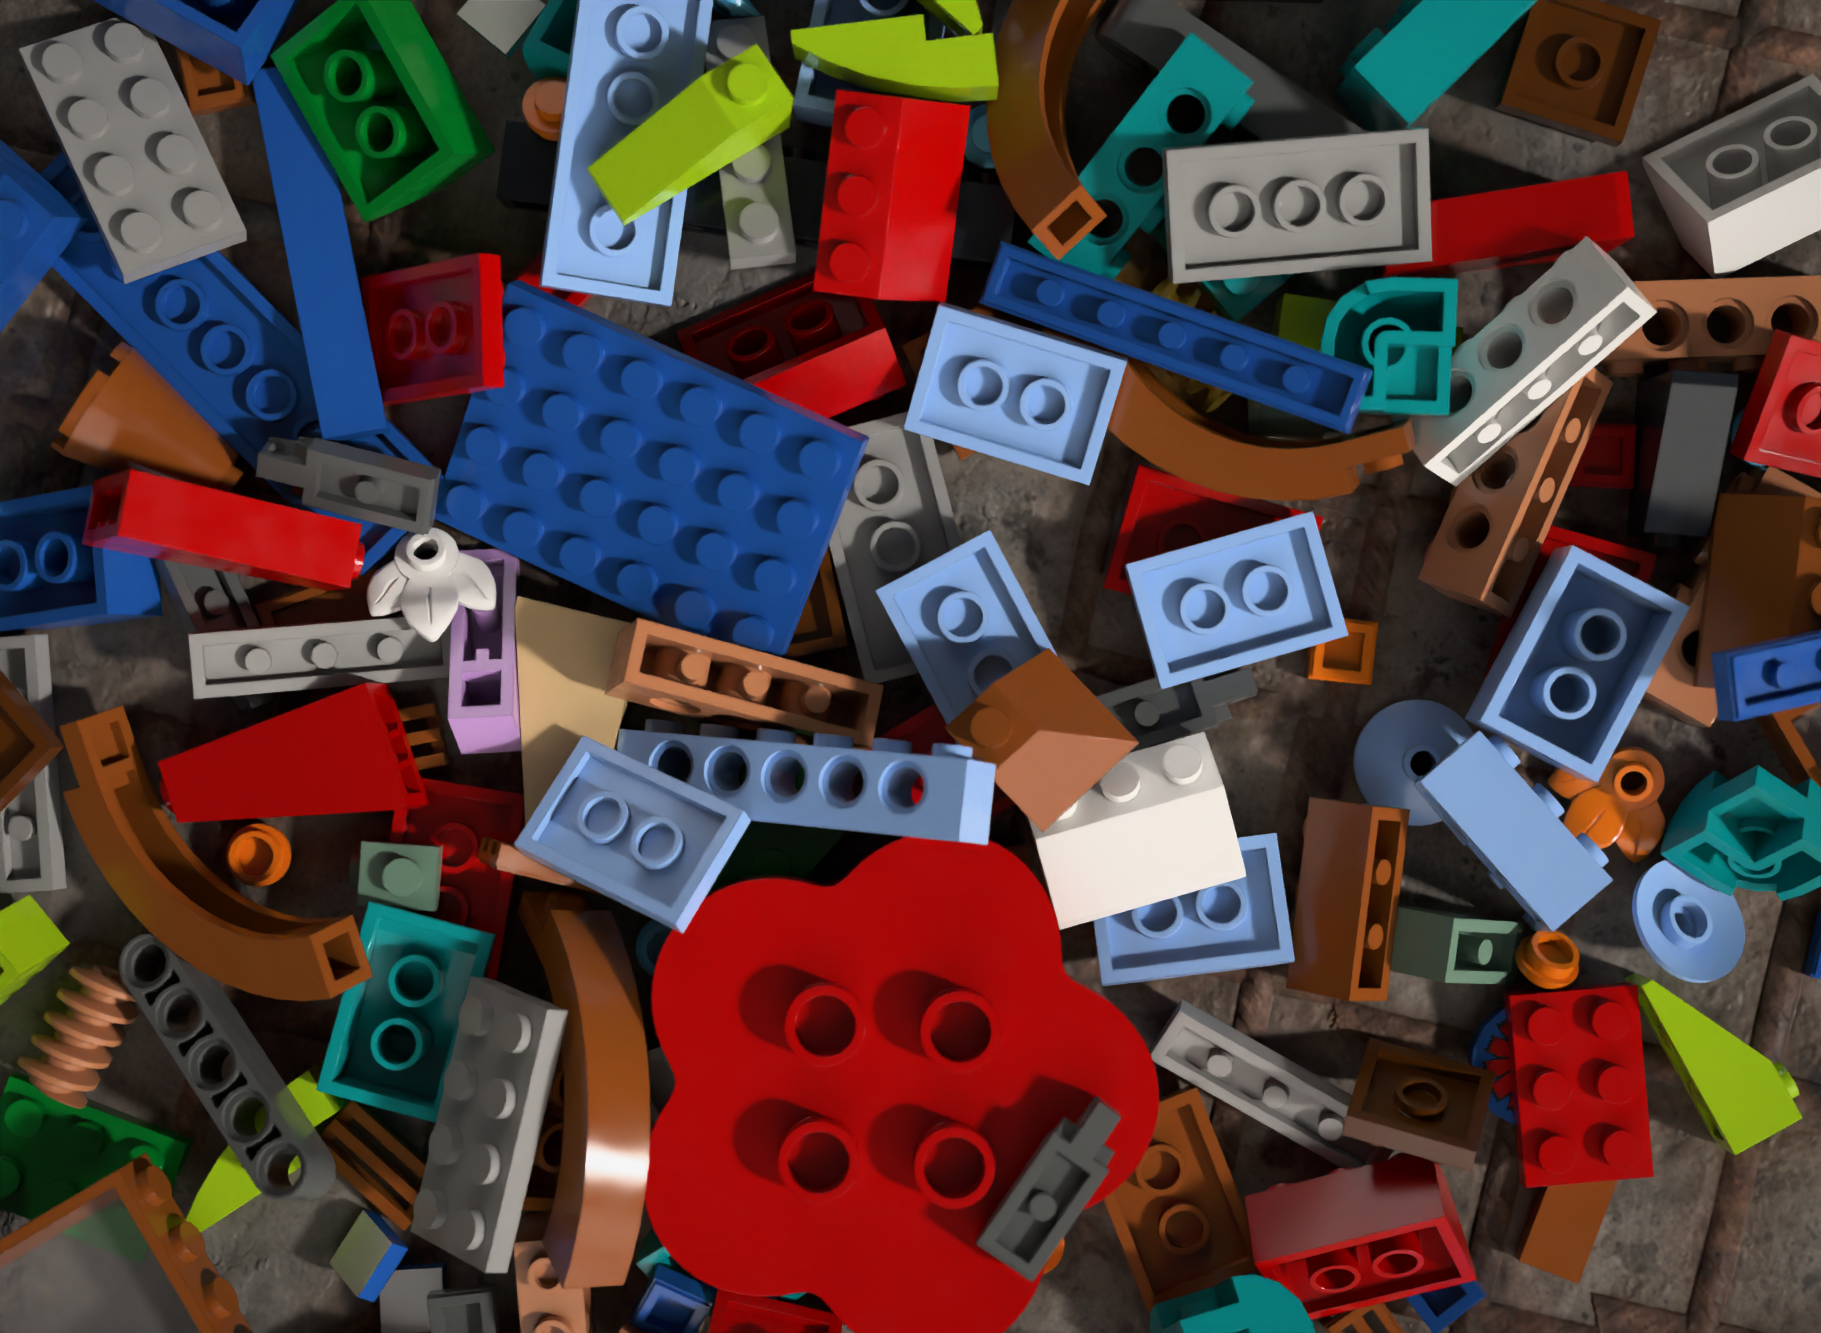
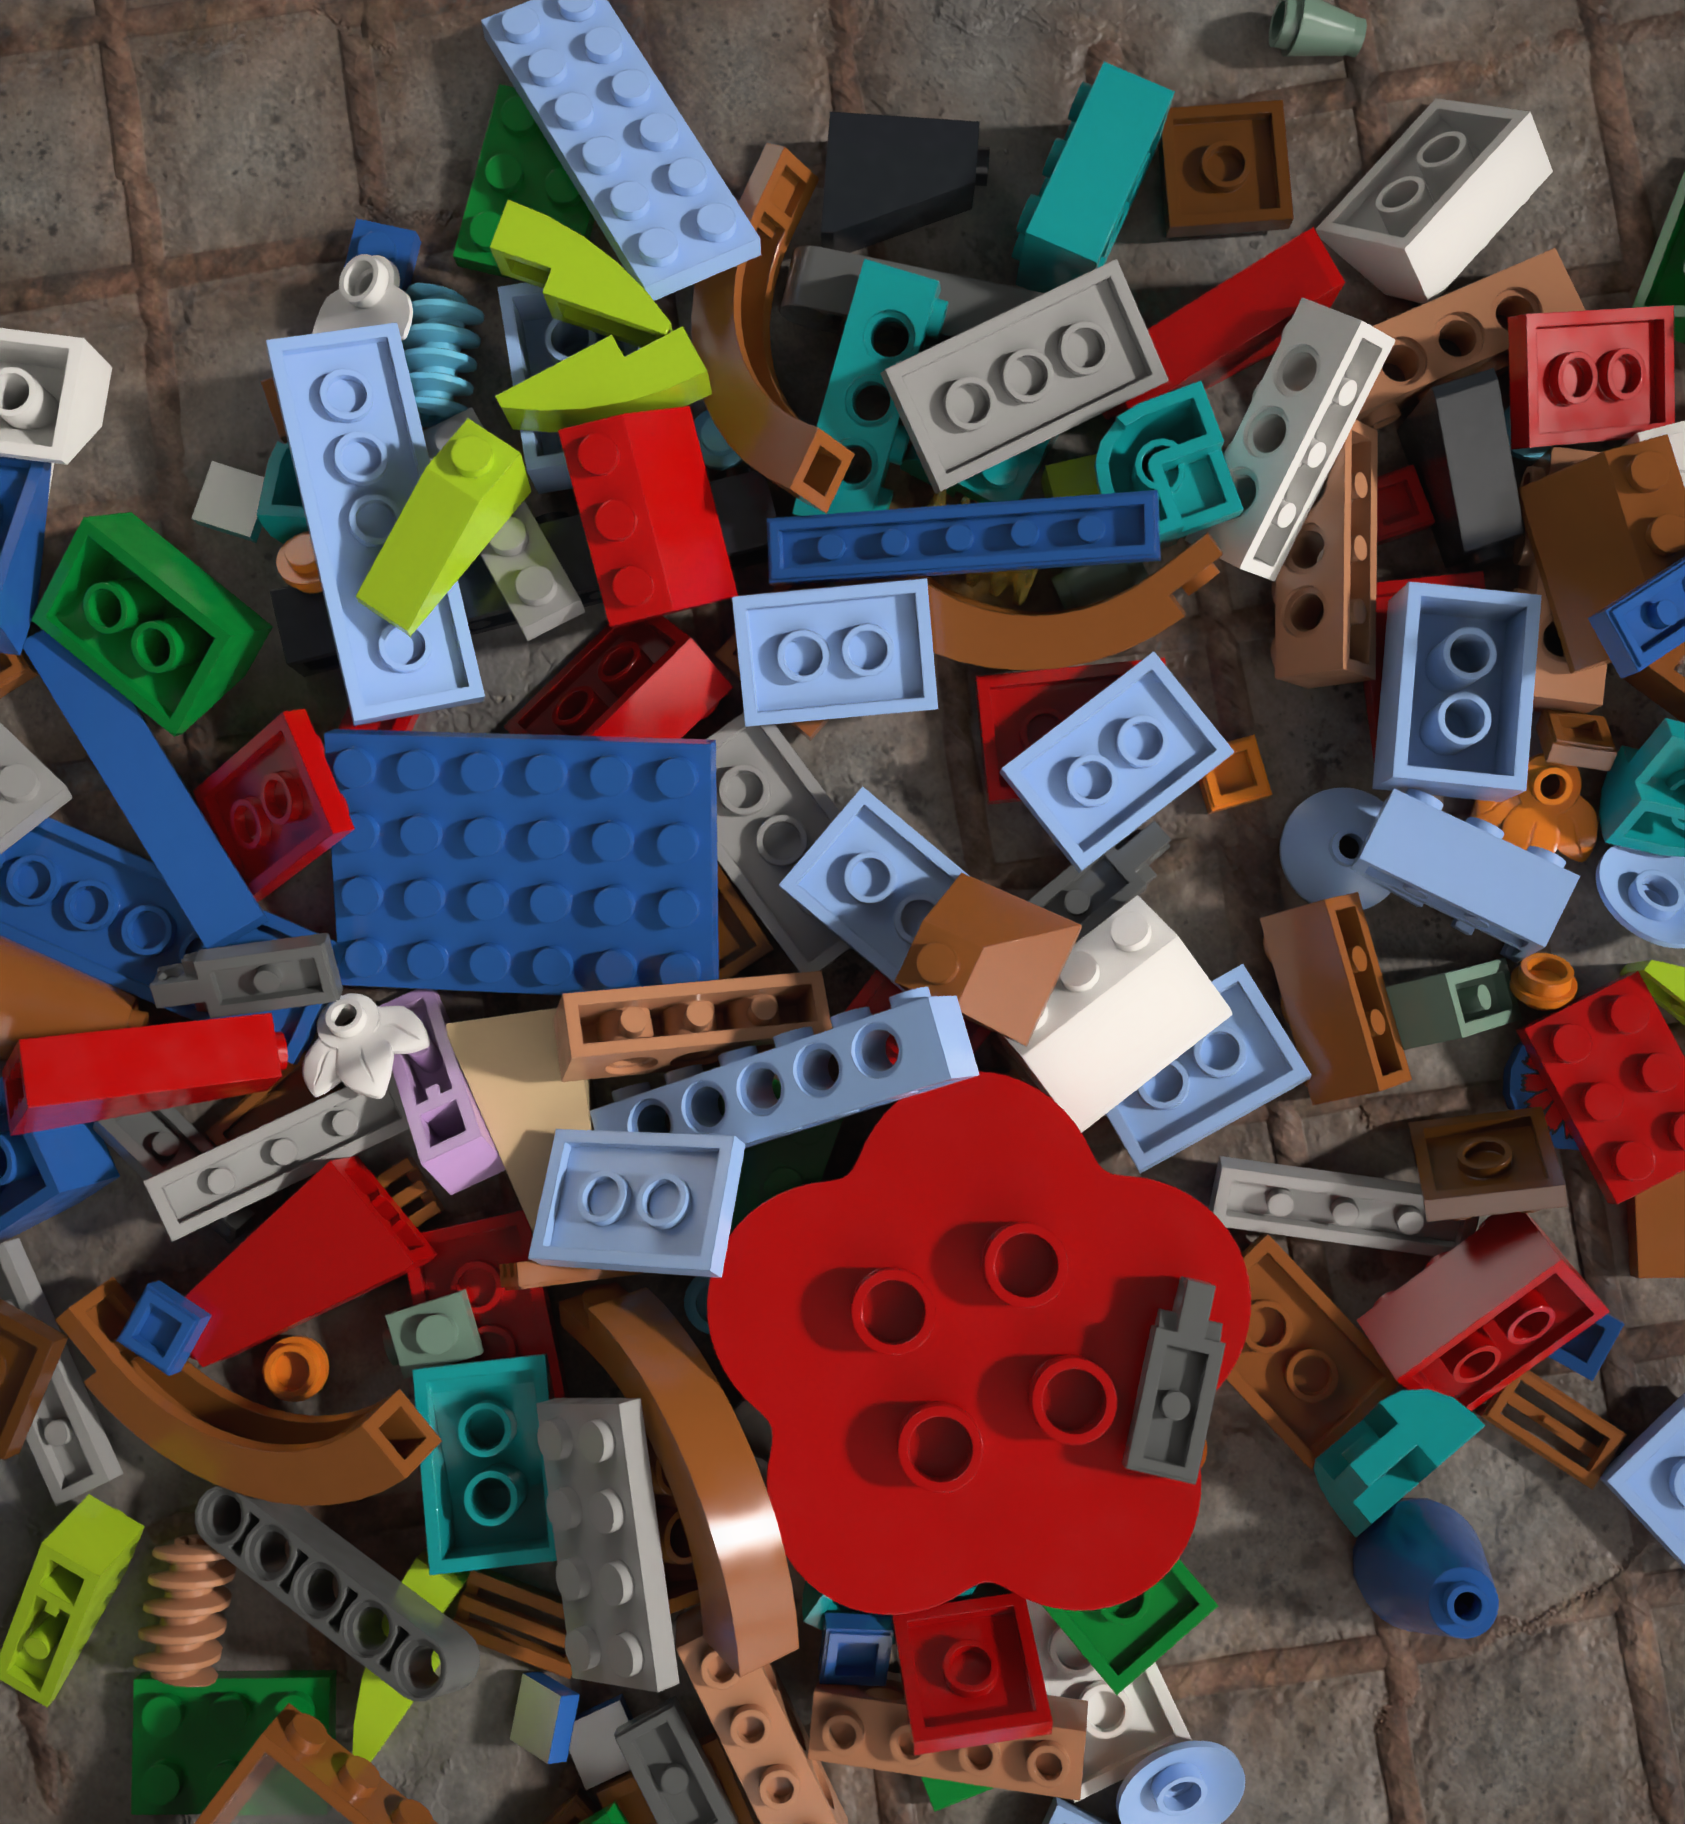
camera: 20 degrees left, 5 degrees down
(156, 773) = (164, 1327): none -> blue tile
(1675, 747) = (1576, 739): none -> dark orange tile

